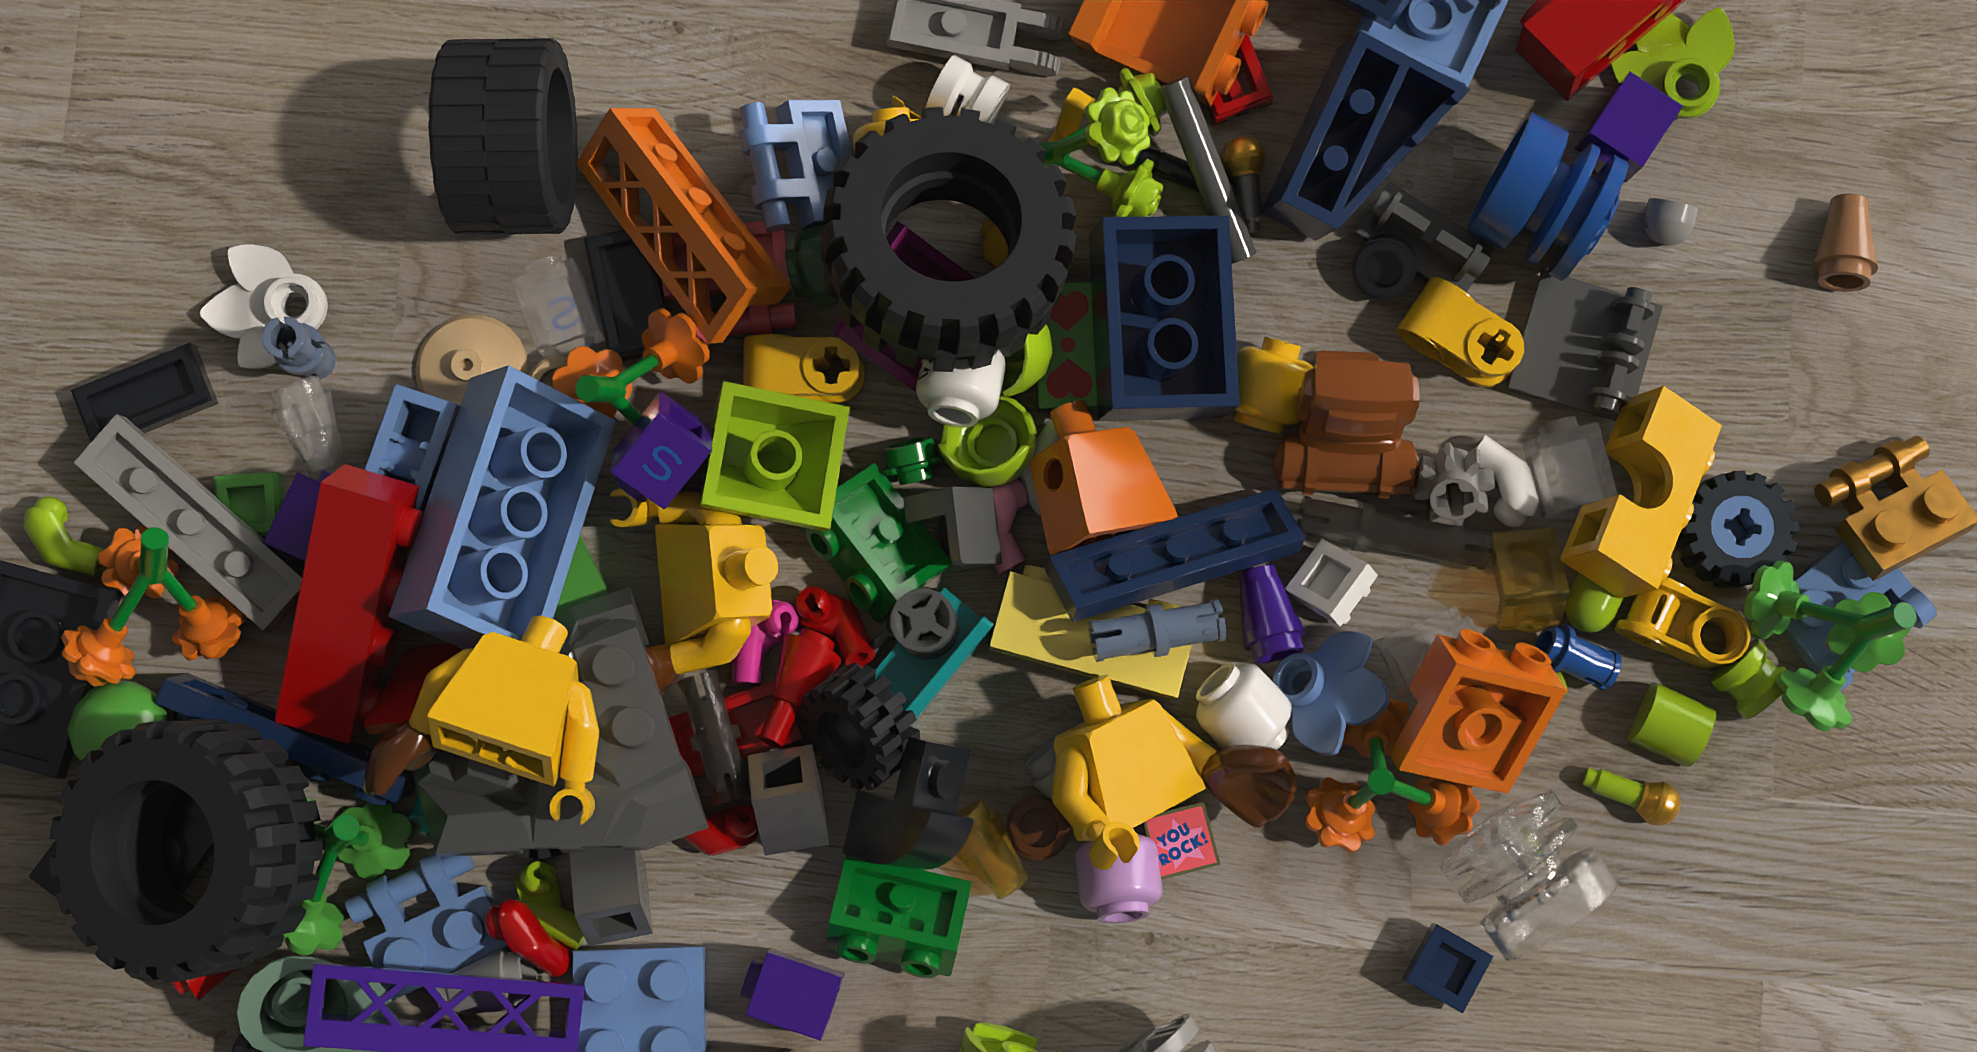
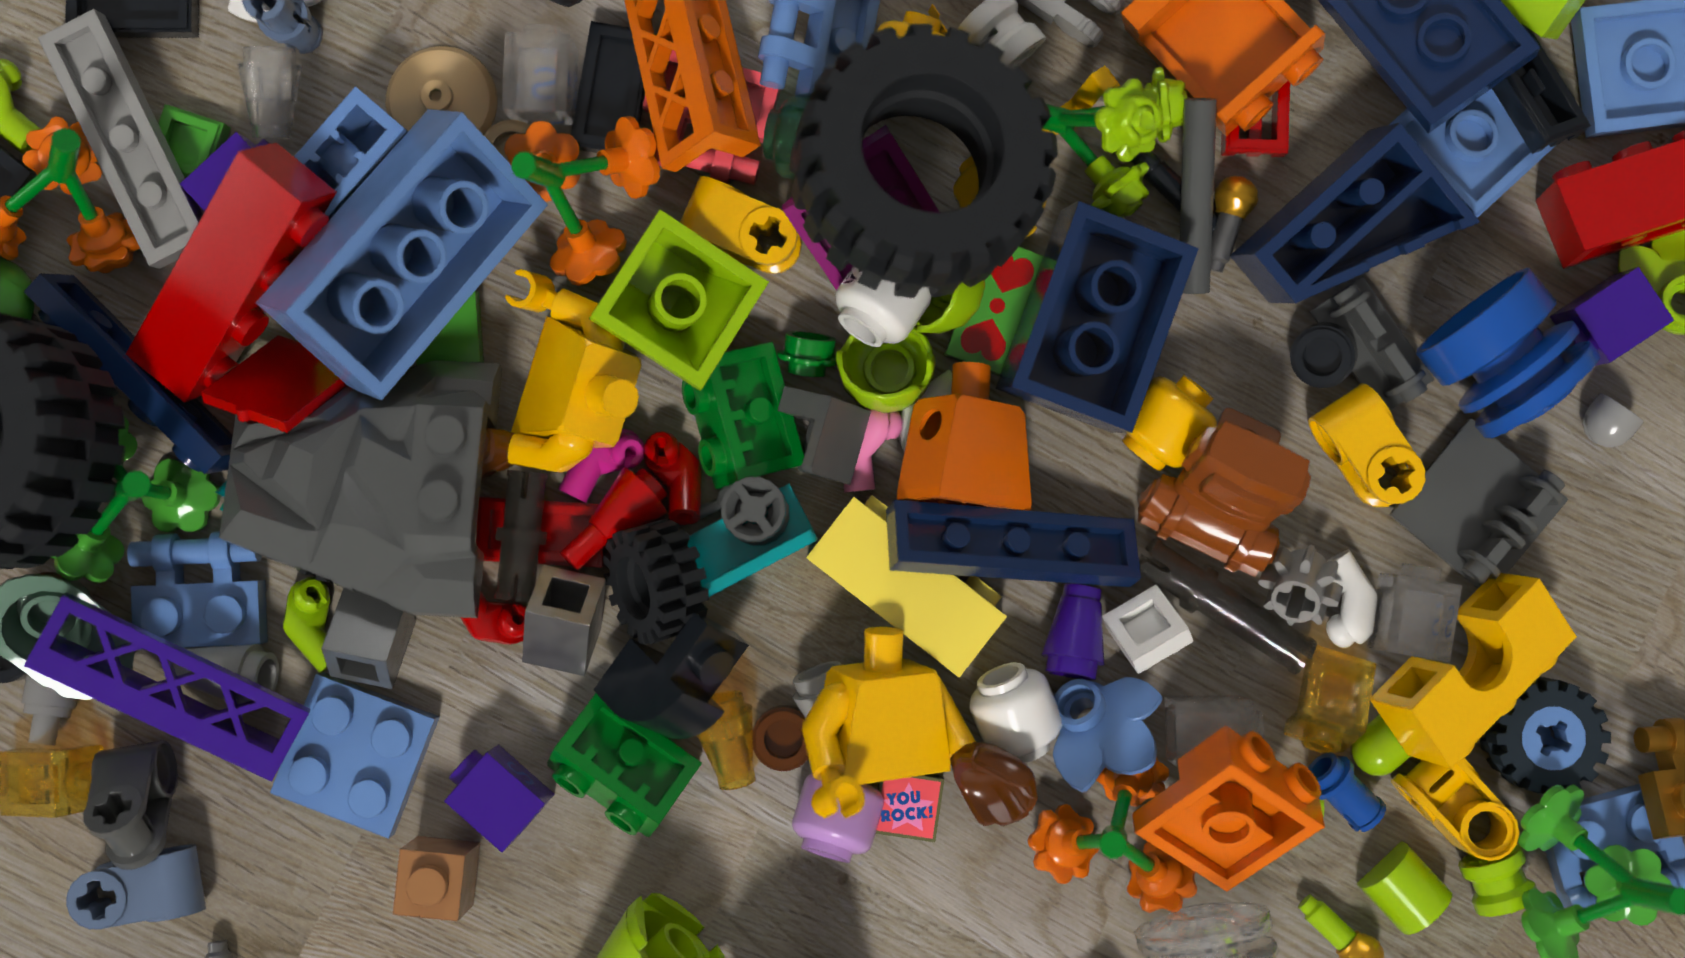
camera: 30 degrees right, 5 degrees up
(505, 708) = (325, 436): yellow torso -> none
(527, 937) = (277, 644): red arm -> none
(661, 451) = (574, 252): dark purple brick -> none
(1157, 630) = (965, 610): sand blue pin -> none

